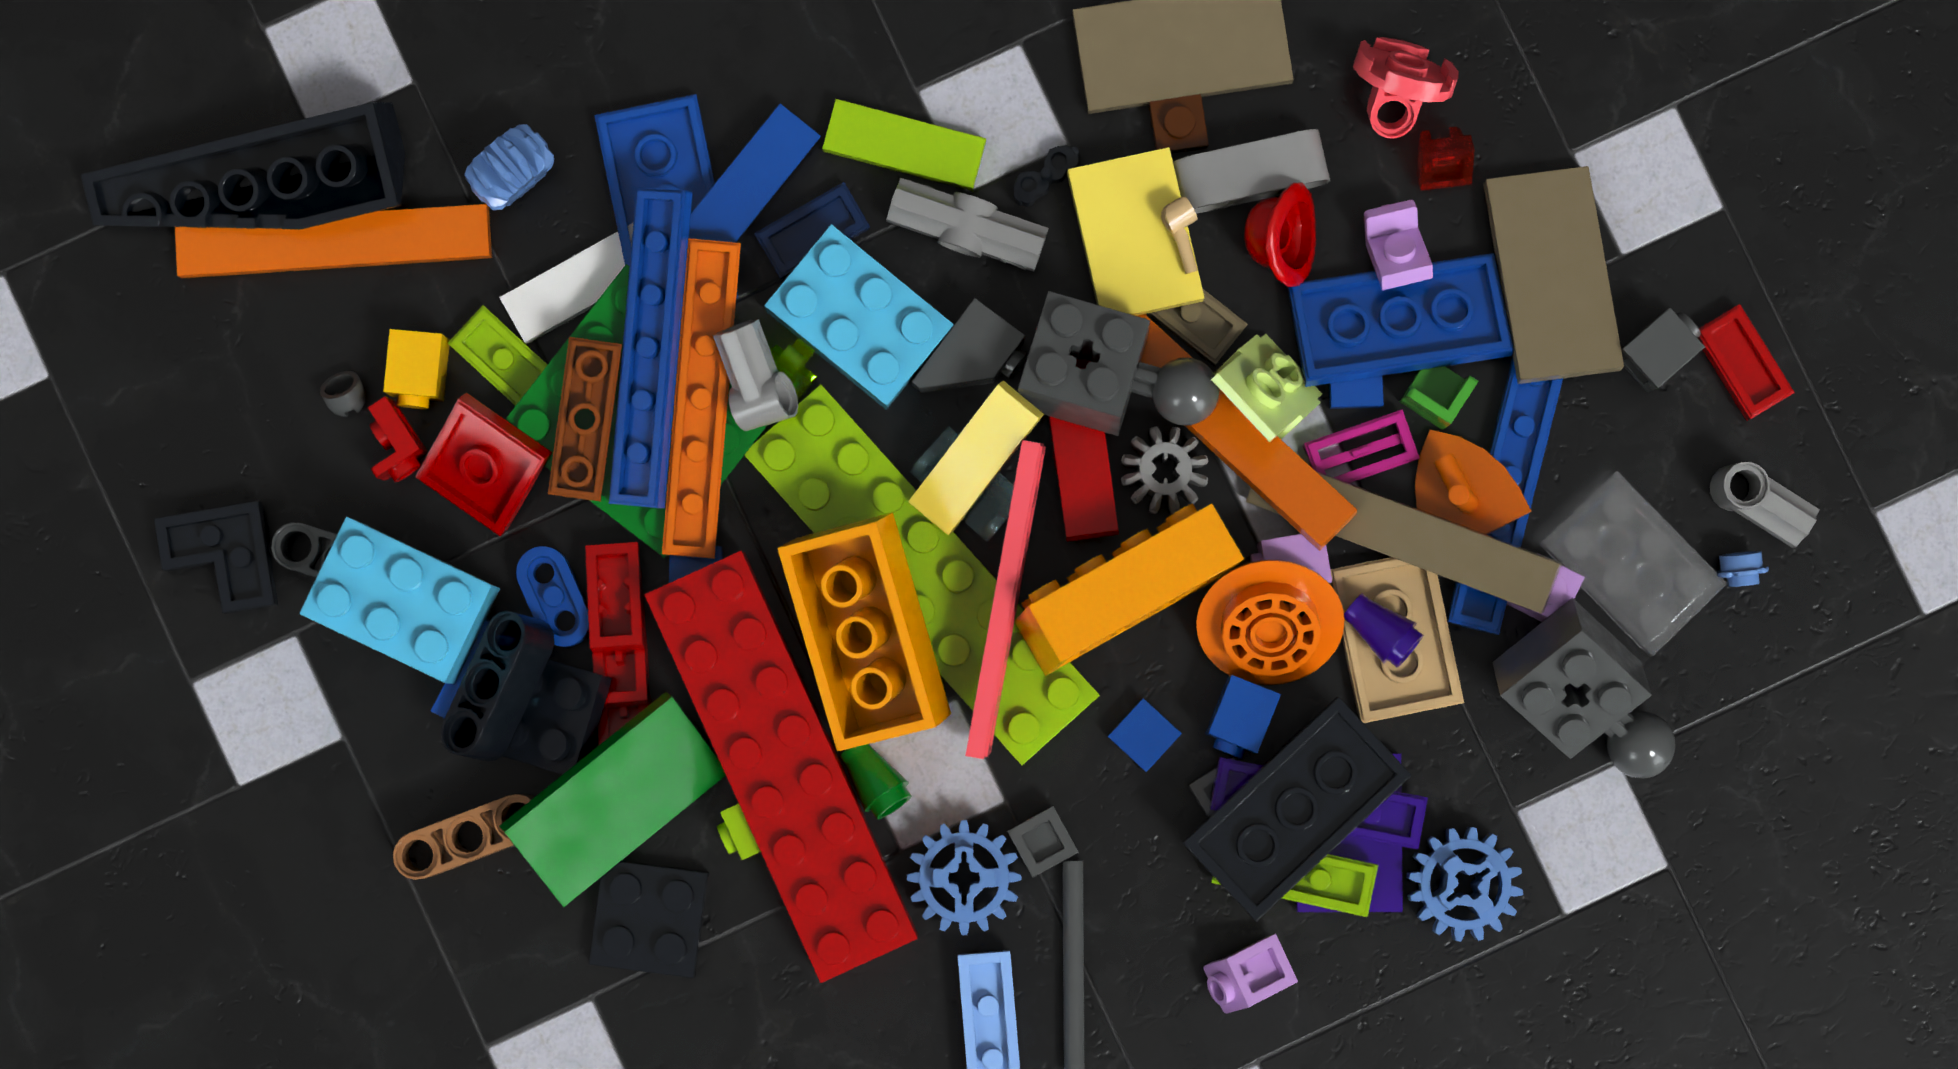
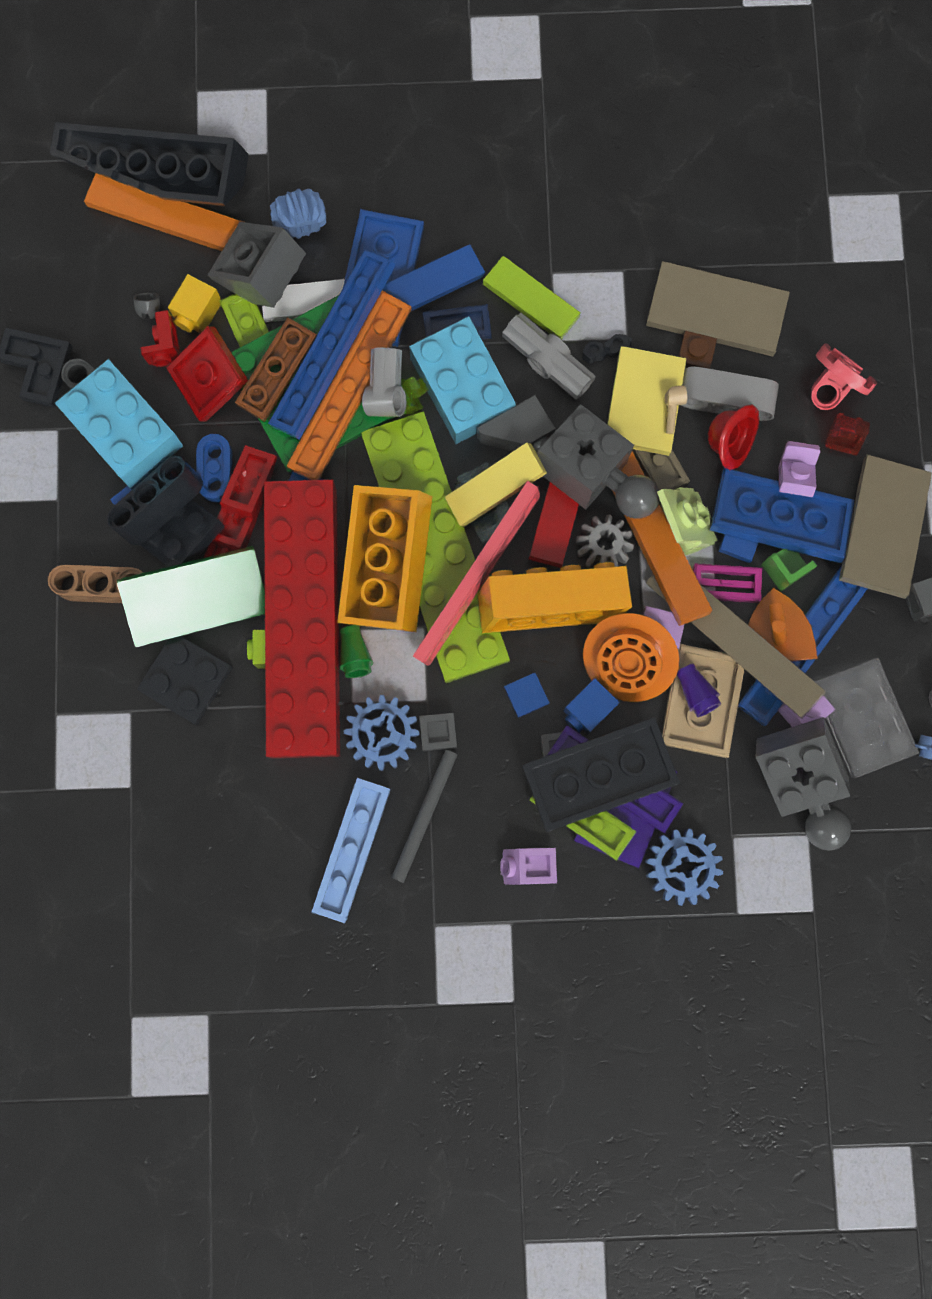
camera: 25 degrees right, 5 degrees down
(483, 269) = (257, 263): none -> dark grey slope

